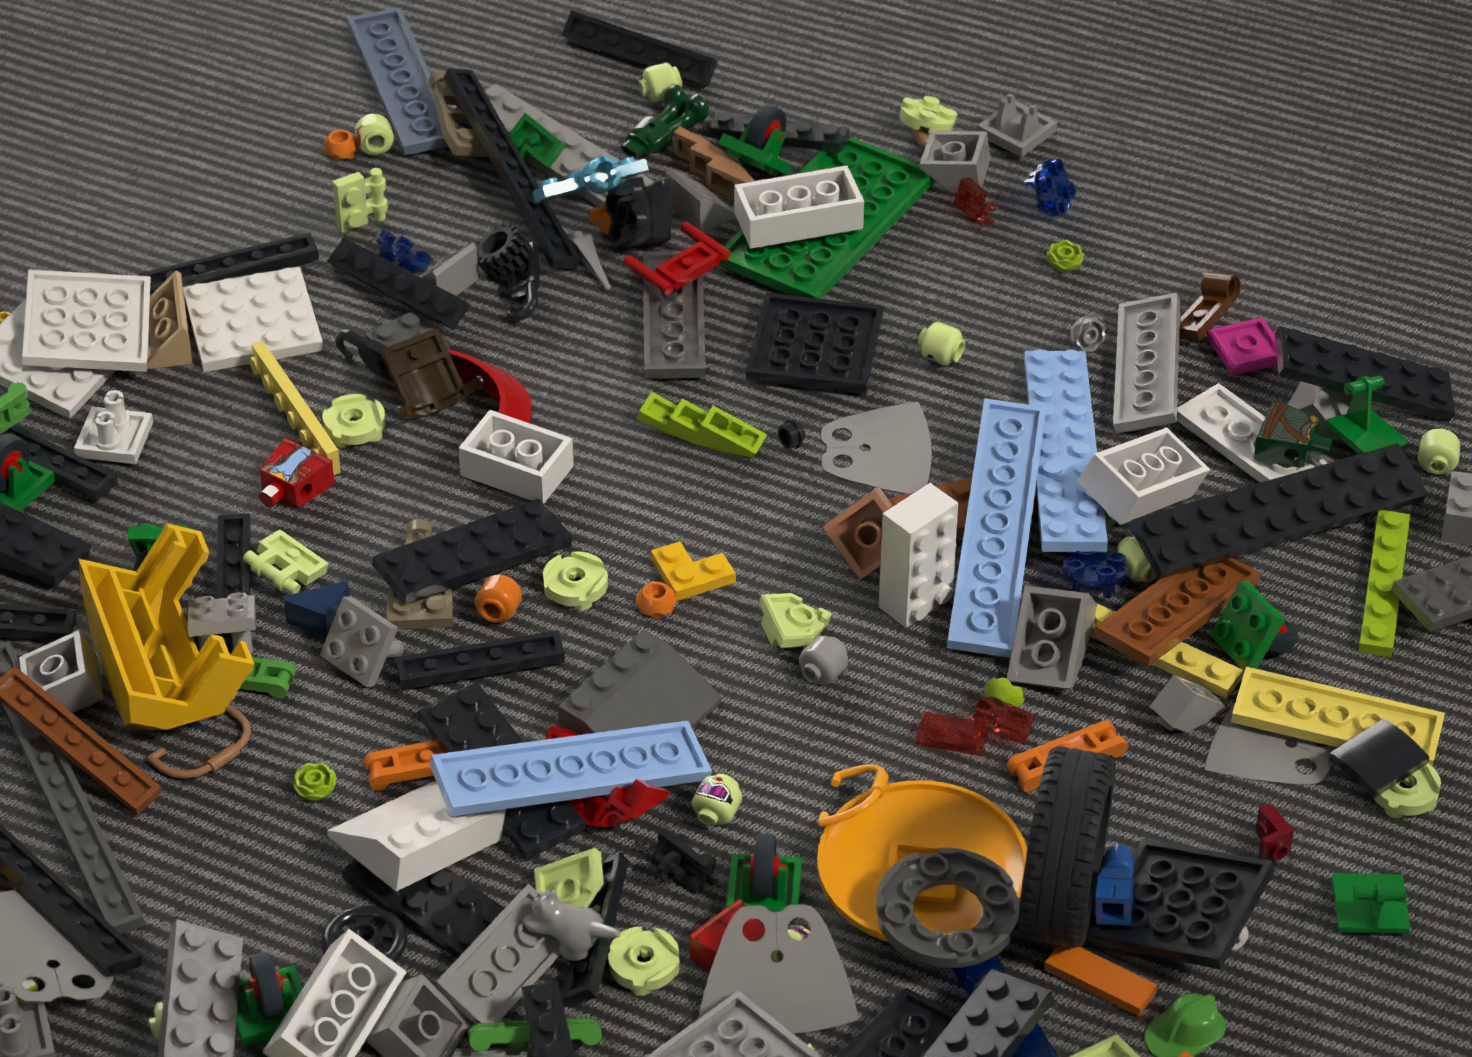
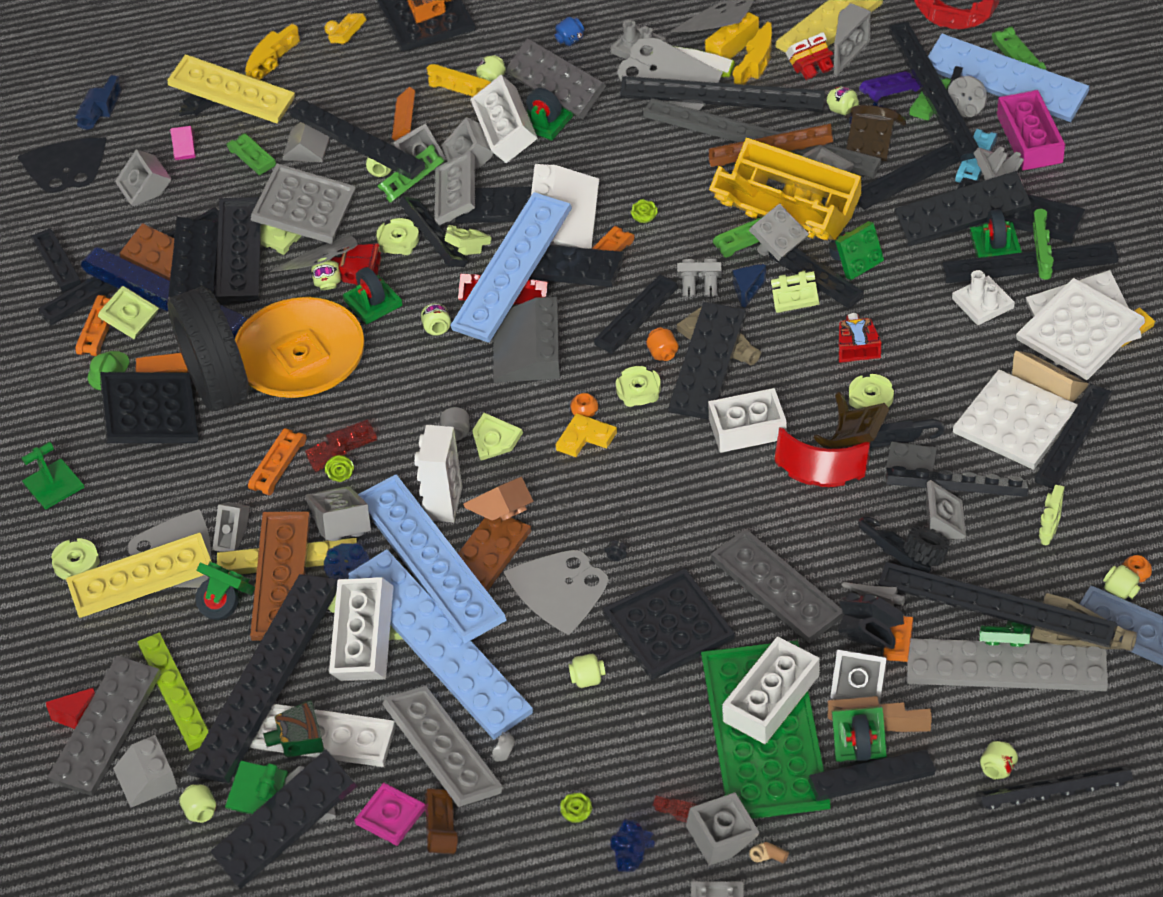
camera: 145 degrees right, 5 degrees up
(213, 763) = (704, 195): medium nougat piece -> none
(291, 402) = (911, 375): light yellow plate -> none
(363, 917) = (535, 157): black plate -> none
(403, 249) = (994, 507): clear blue plate -> none
(573, 926) = (433, 206): light grey animal -> none
(597, 176) = (924, 616): medium azure plate -> none
(658, 131) = (952, 716): dark green piece -> none
(679, 861) = (424, 280): black hips -> none
(685, 265) = (797, 608): red plate -> none
(708, 429) = (669, 523): lime slope -> none
(876, 792) = (354, 363): light orange piece -> none
(927, 114) = (799, 857): yellowish green plate -> none
(948, 867) = (264, 297): dark grey plate -> none
(1115, 887) = (185, 388): blue piece -> none
(1274, 834) = (129, 484): dark red bracket -> none
(1380, 757) = (95, 552): black slope -> none

